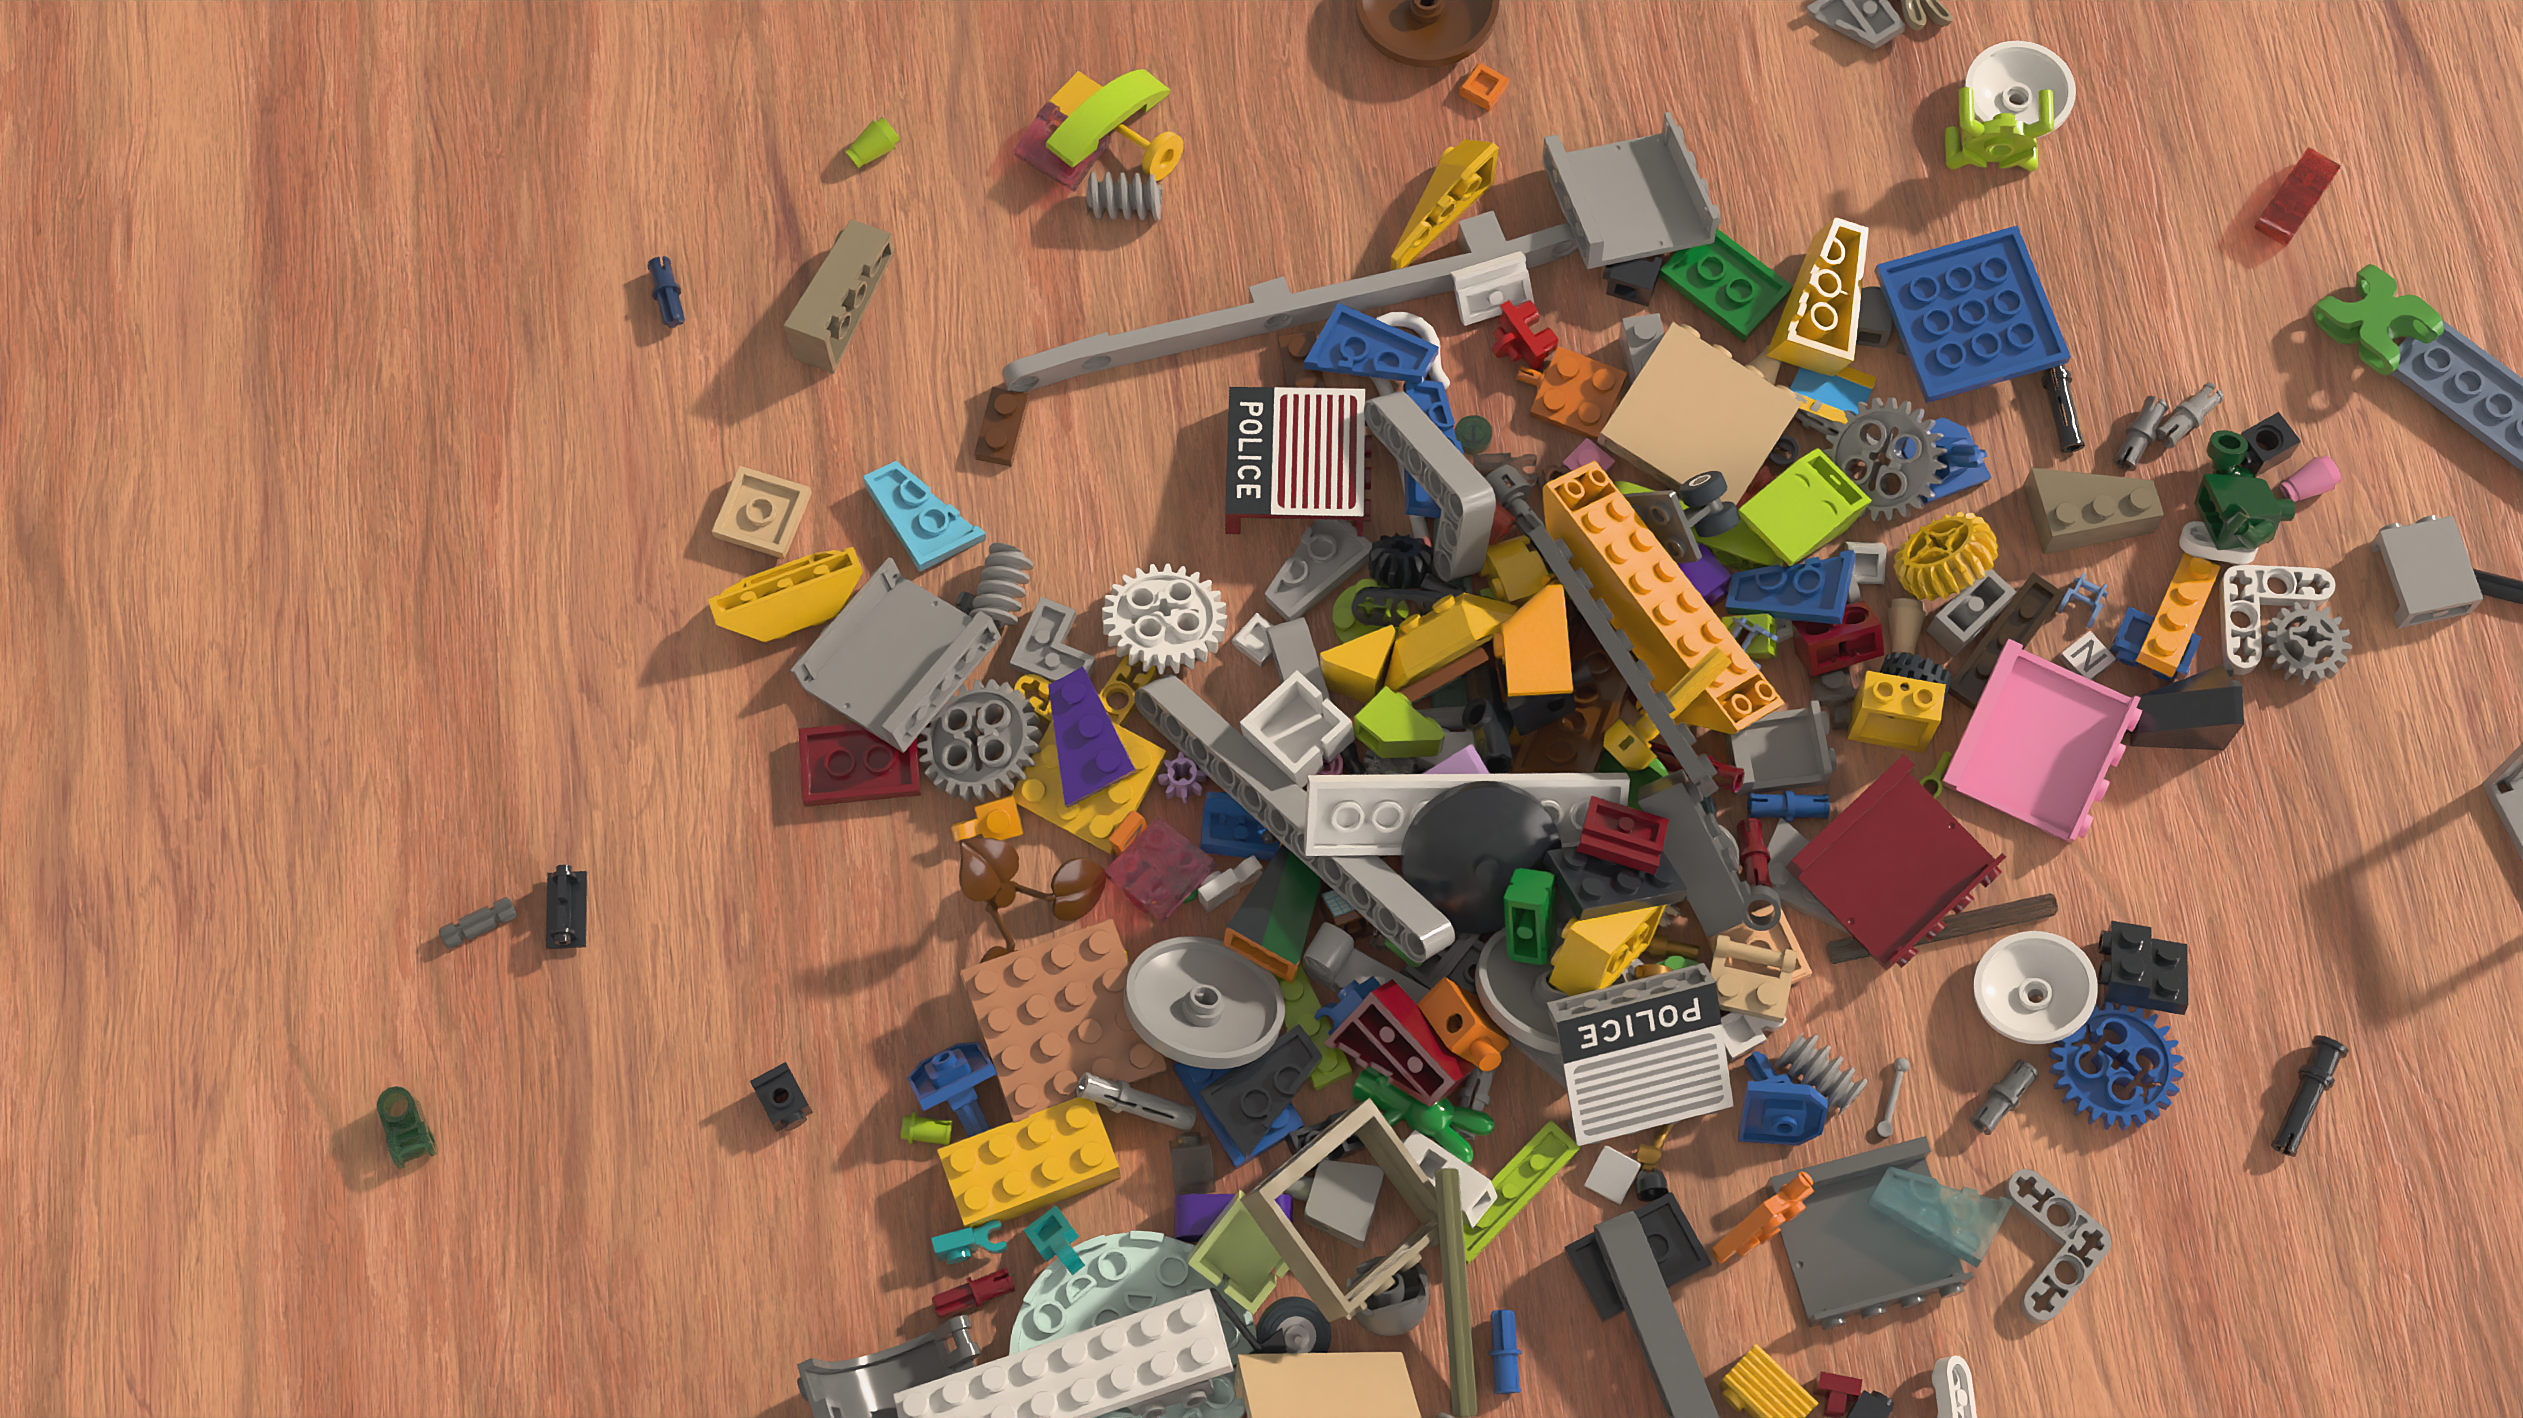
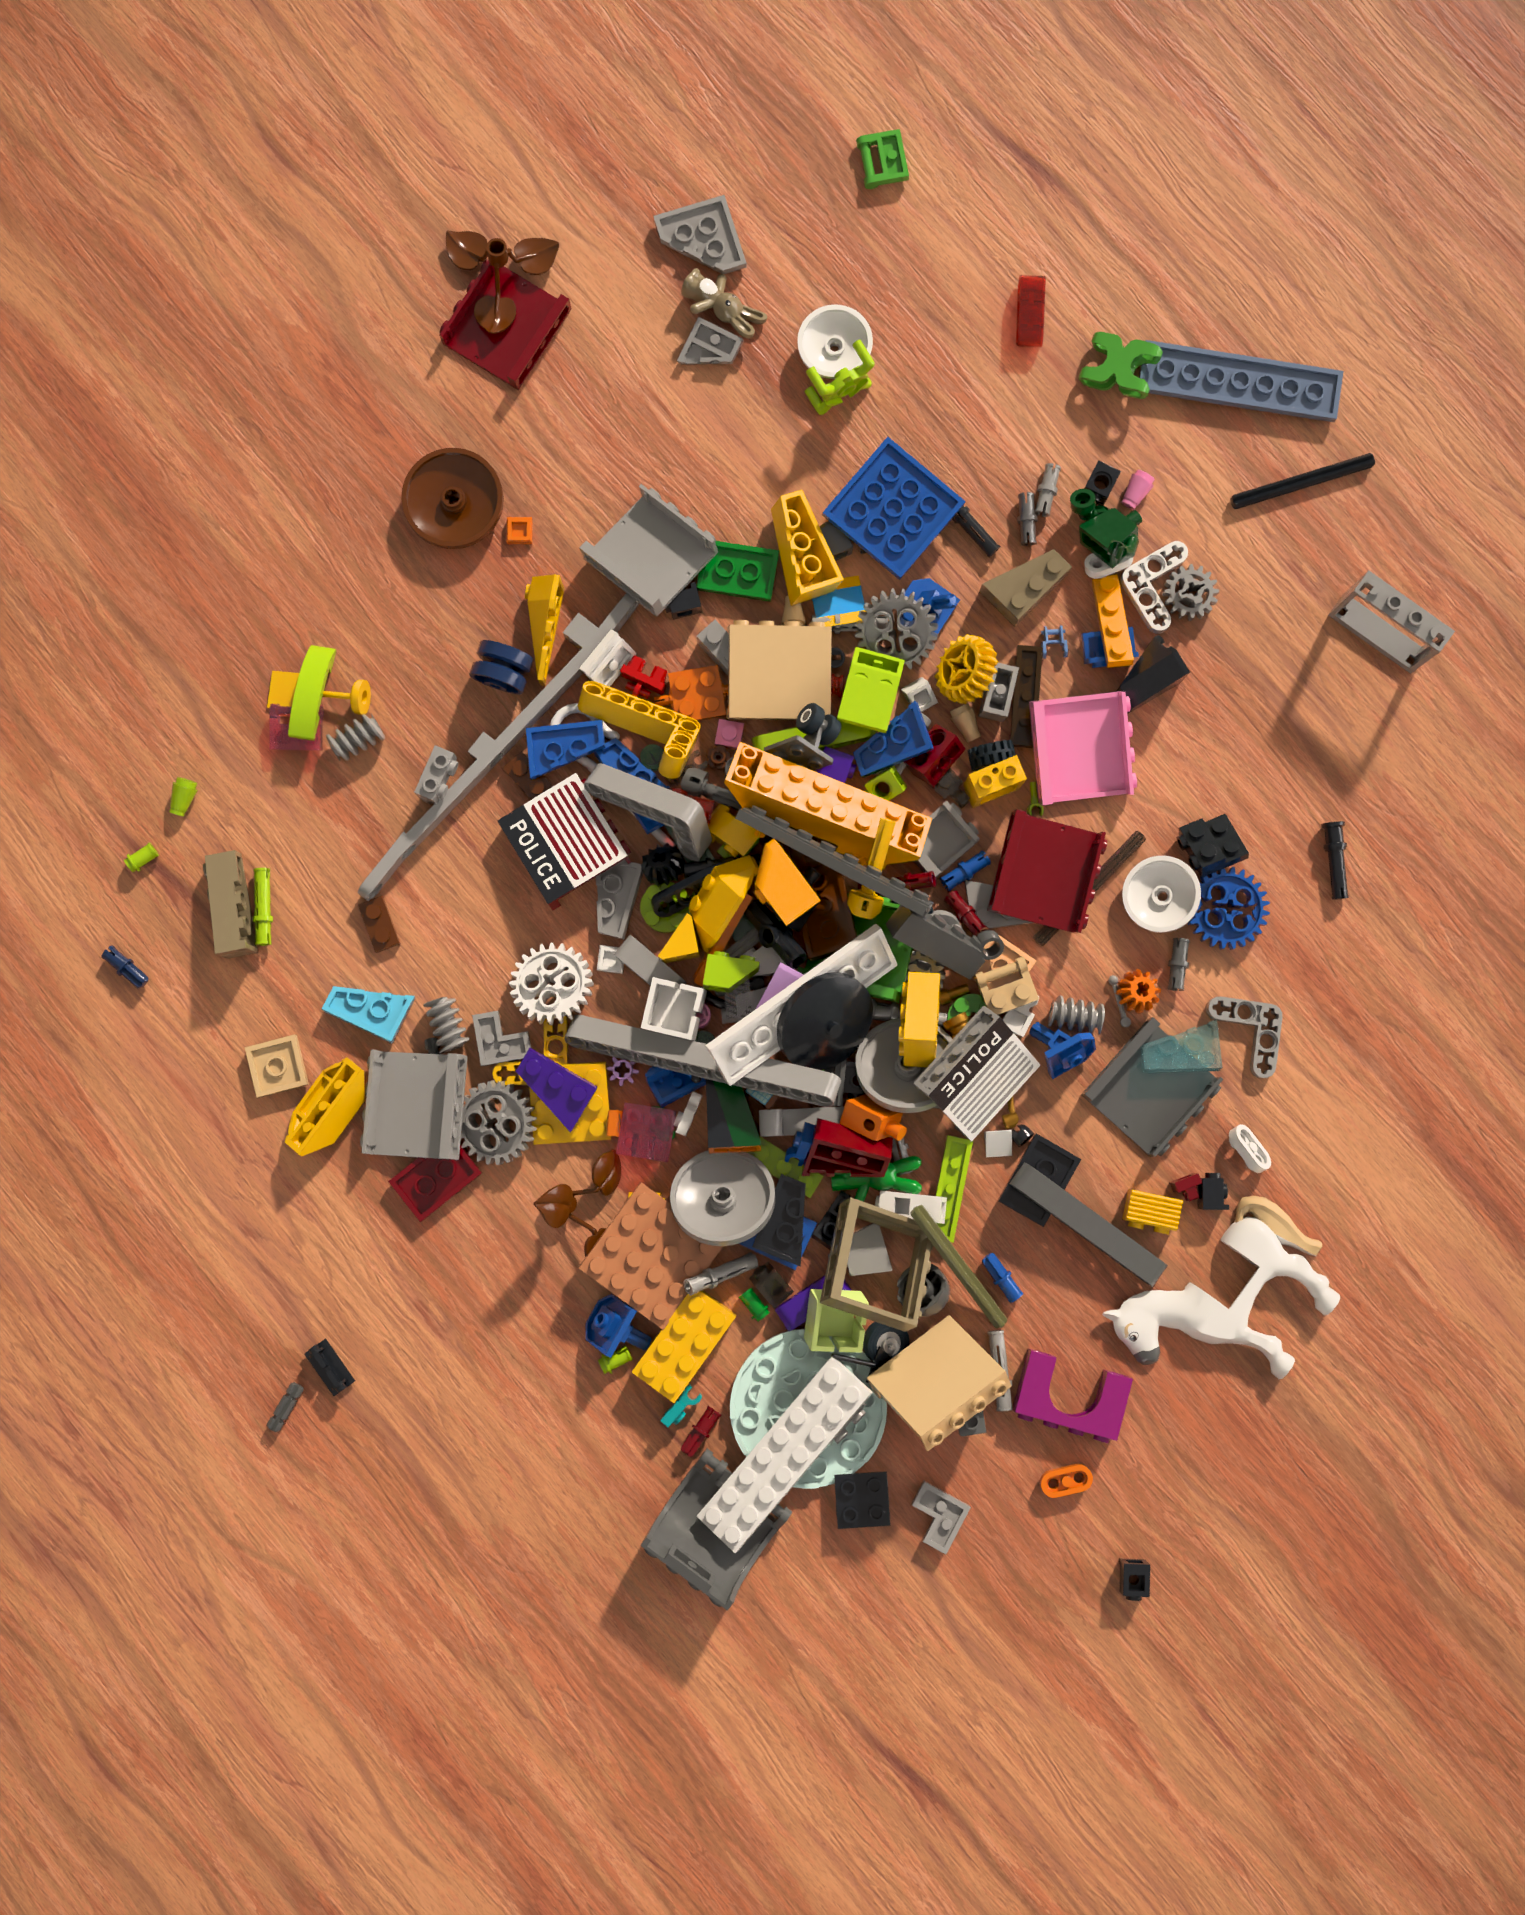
camera: 35 degrees left, 15 degrees up
(407, 1134) = (331, 1546): clear green piece -> none
(773, 1084) = (521, 1385): black brick -> none
(774, 182) = (141, 857): none -> lime pin
(869, 331) = (262, 913): none -> lime pin
(994, 820) = (533, 1162): light orange plate -> none
(1053, 1237) = (723, 1374): teal plate -> none
(1152, 1171) = (754, 1304): none -> green pin
(1190, 288) = (435, 775): none -> light grey plate
(1356, 216) = (501, 667): none -> dark blue wheel
(1518, 415) = (645, 719): none -> yellow beam
(1530, 916) = (873, 1038): green brick -> none
(1608, 888) = (906, 987): black plate -> none
(1623, 835) = (897, 963): dark red plate -> none
(1756, 630) = (878, 785): medium blue piece -> none
(1765, 1219) = (1097, 1123): orange plate -> none
(1934, 1084) = (1140, 1001): none -> orange gear
(2087, 657) = (1075, 676): white tile -> none
(2428, 570) = (1231, 505): light grey panel -> none

